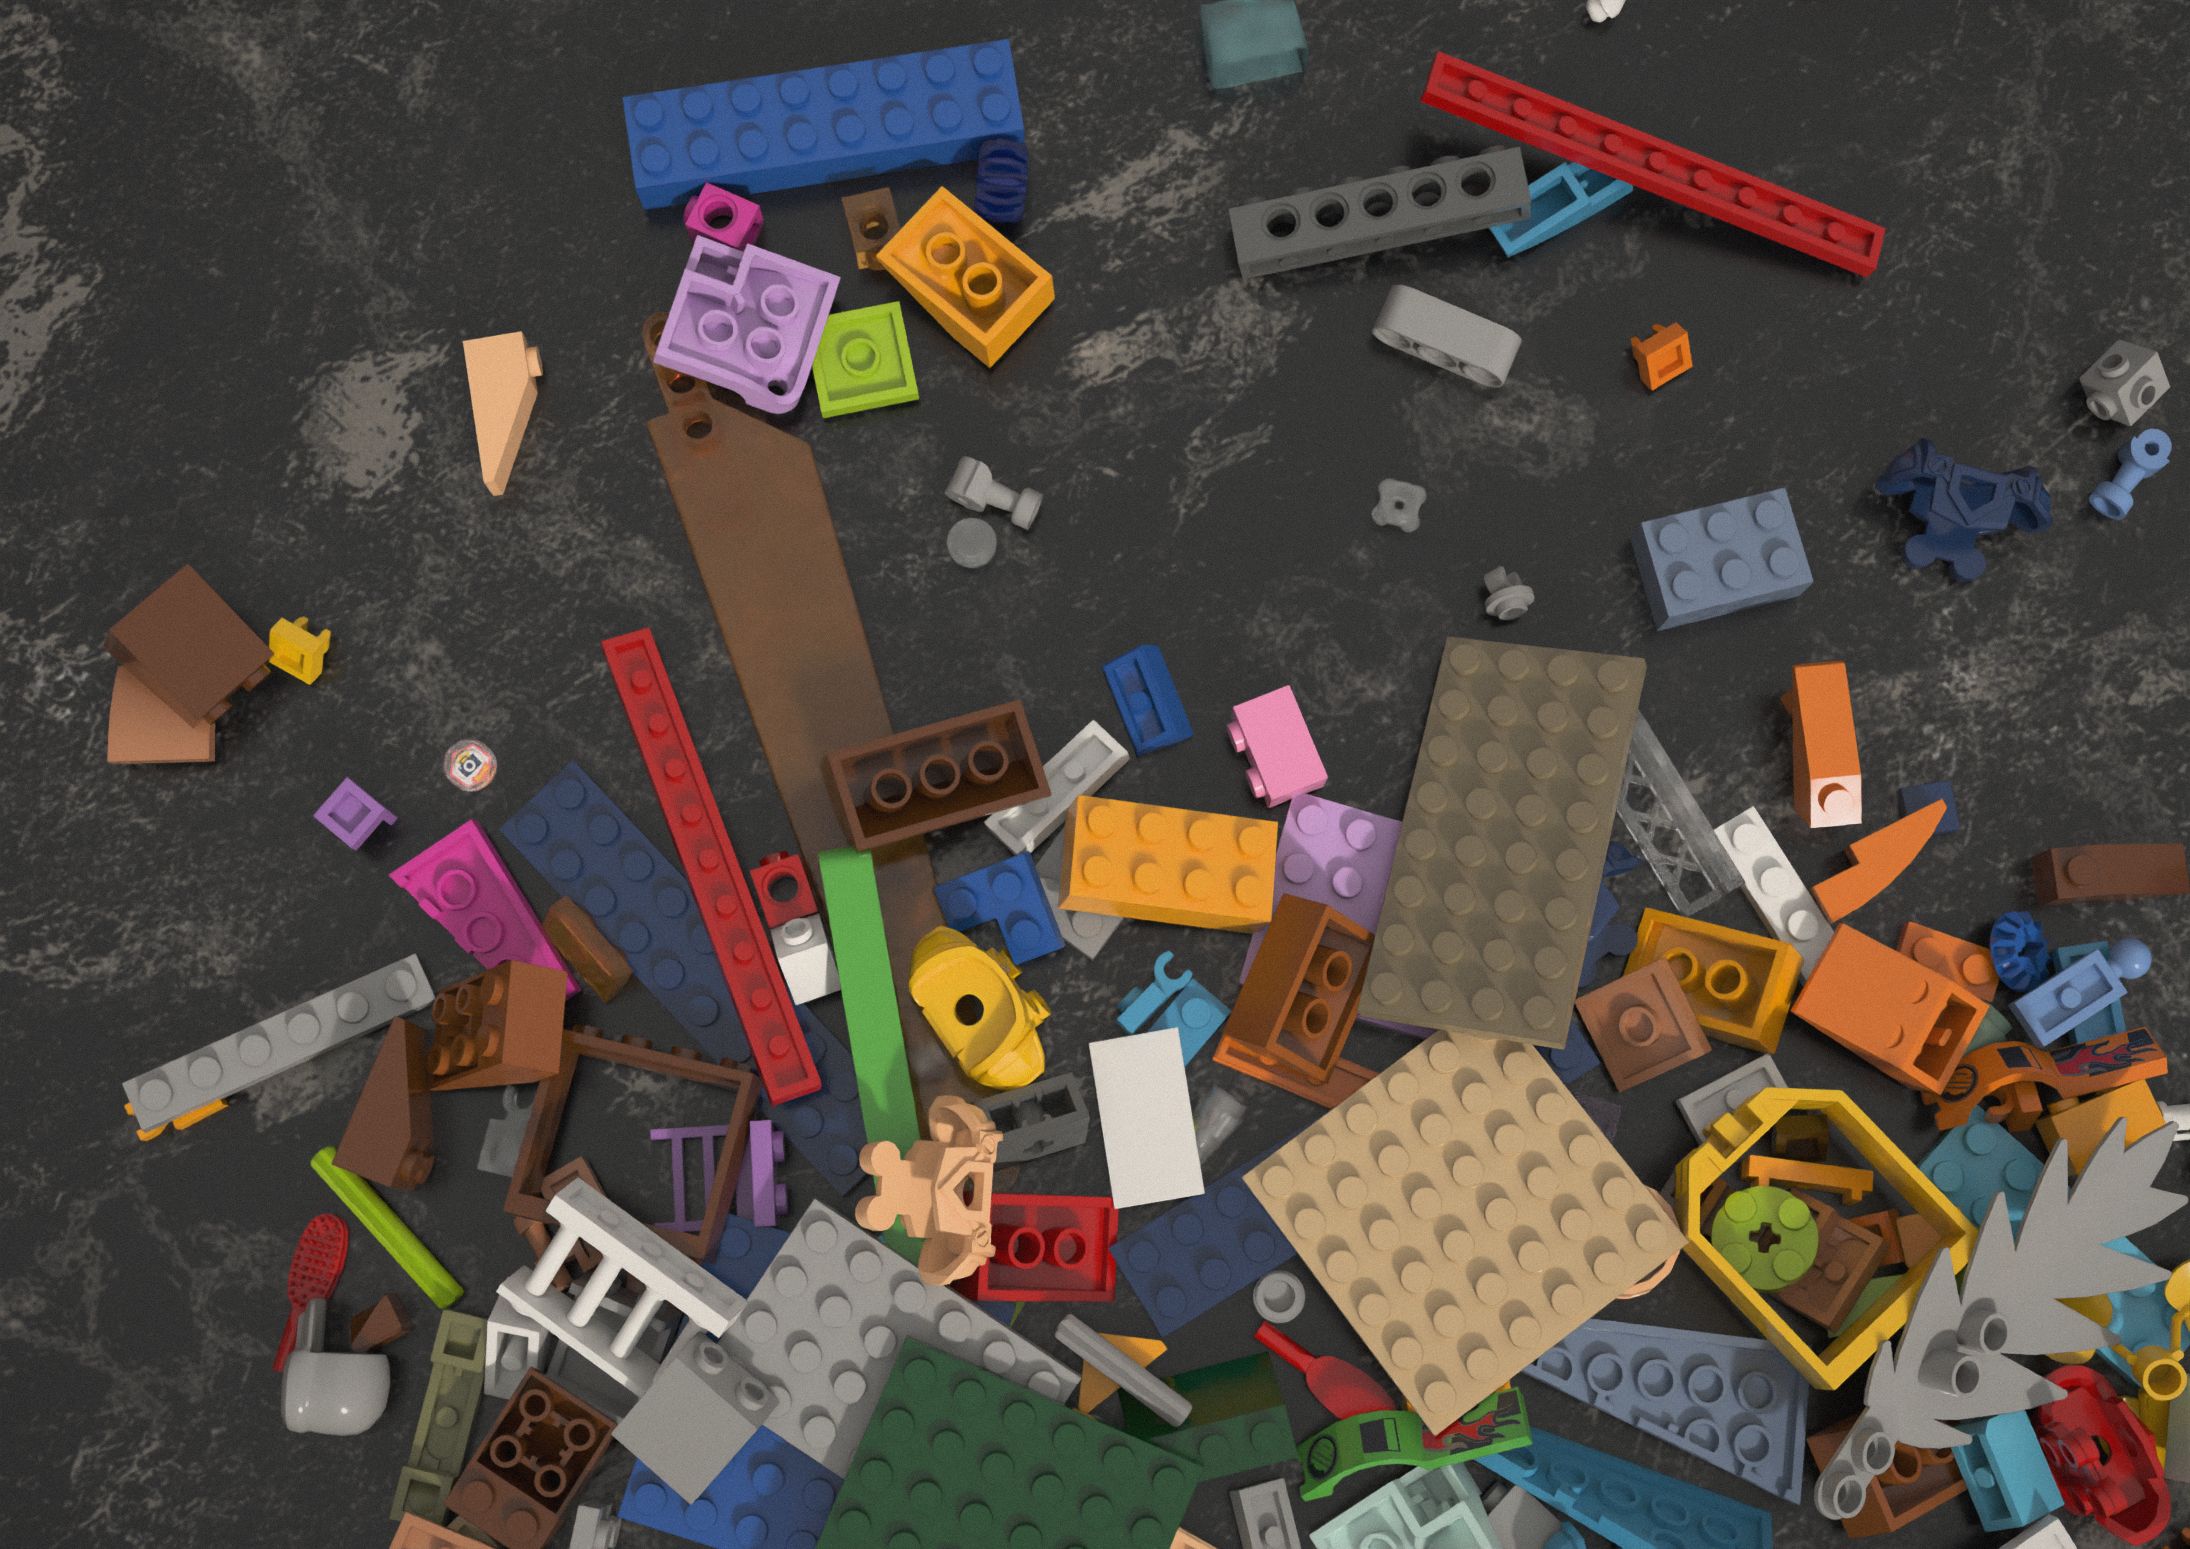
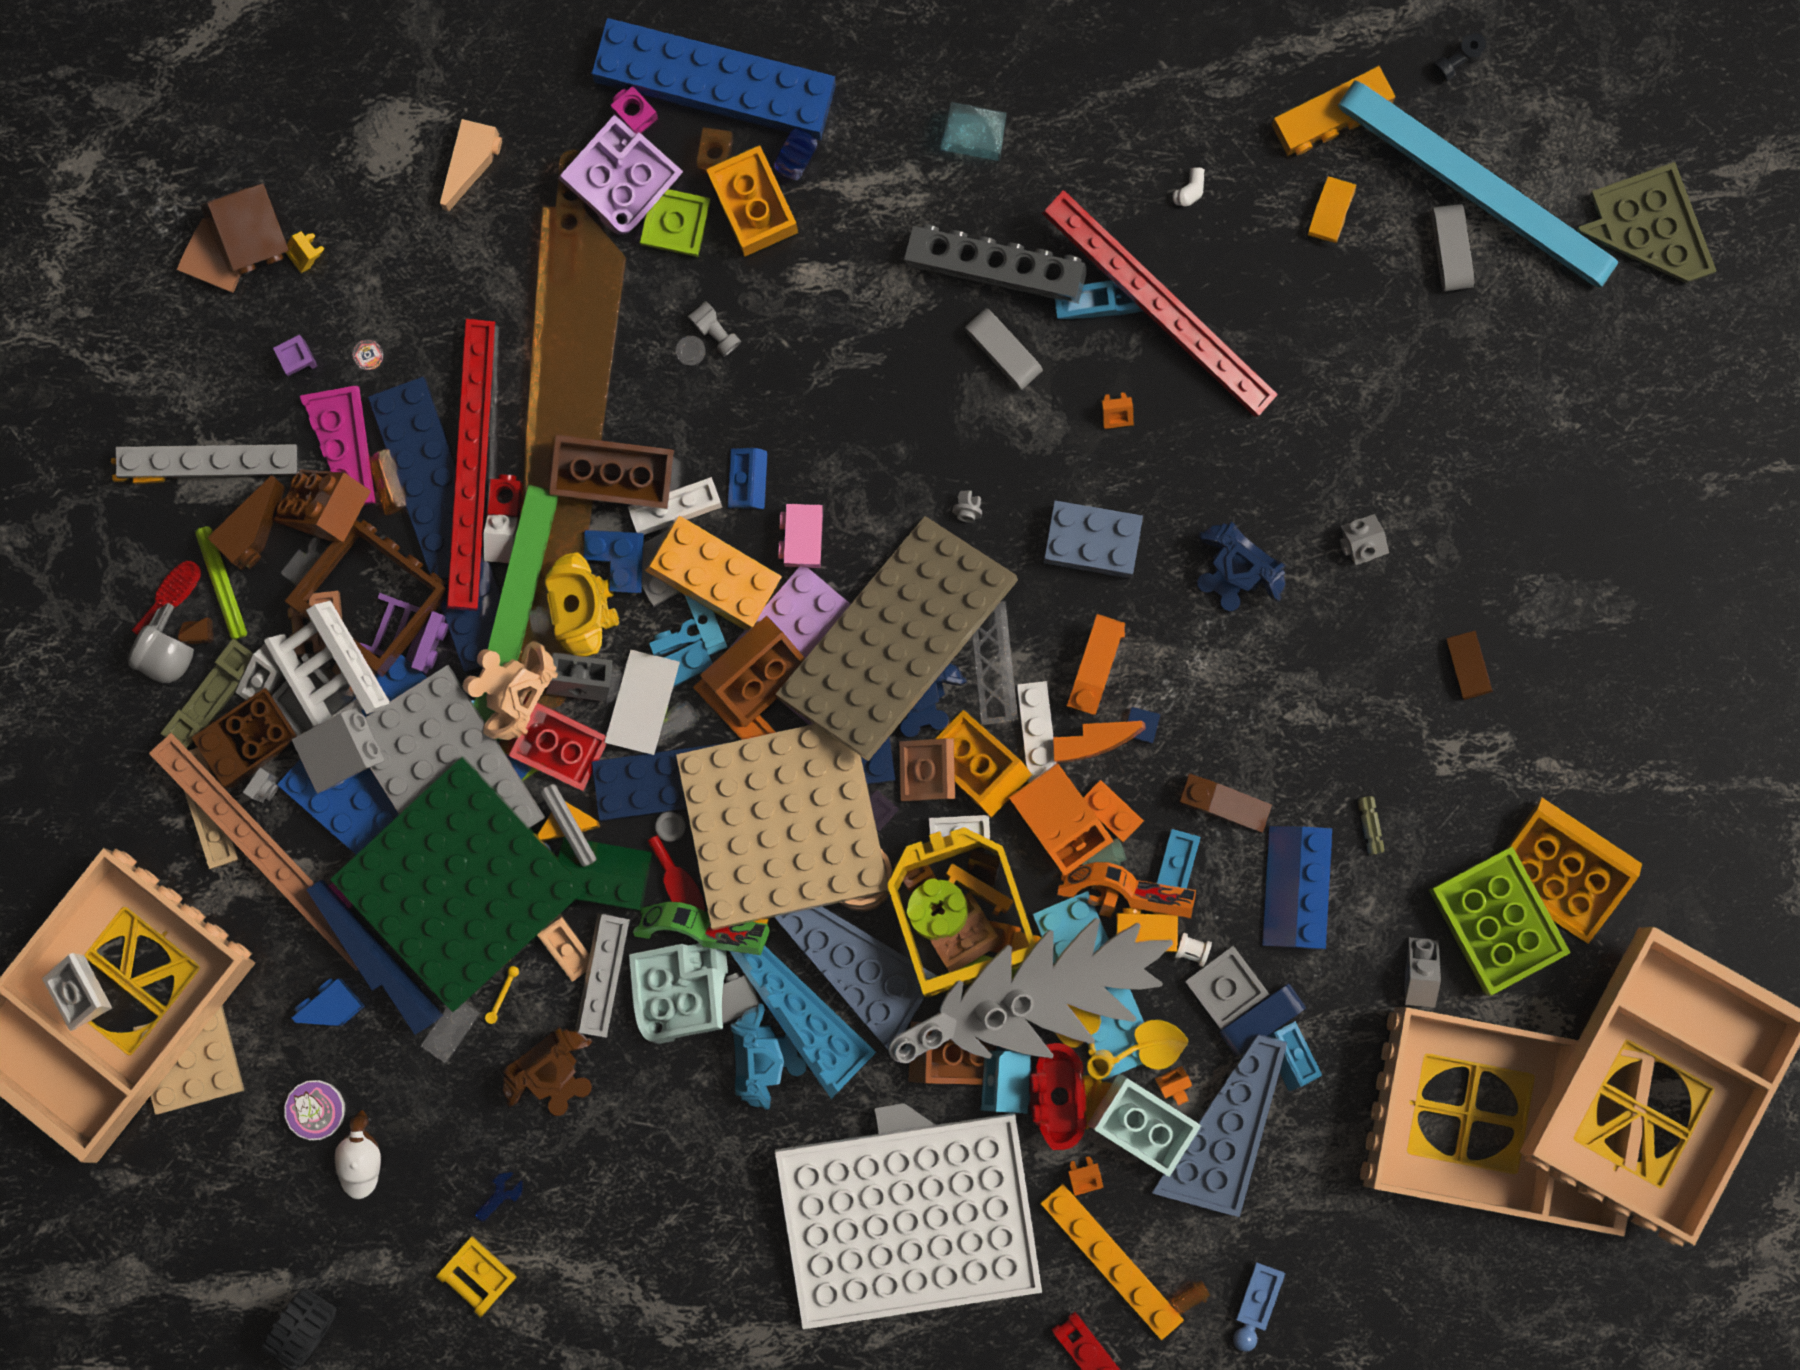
camera: 30 degrees right, 5 degrees up
(1200, 958) = (709, 631): none -> medium azure piece
(1409, 495) = (925, 432): clear plate -> none
(2008, 937) = (1147, 810): blue gear -> none
(2079, 991) = (1168, 855): medium blue plate -> none
(2140, 459) = (1356, 585): medium blue leg -> none

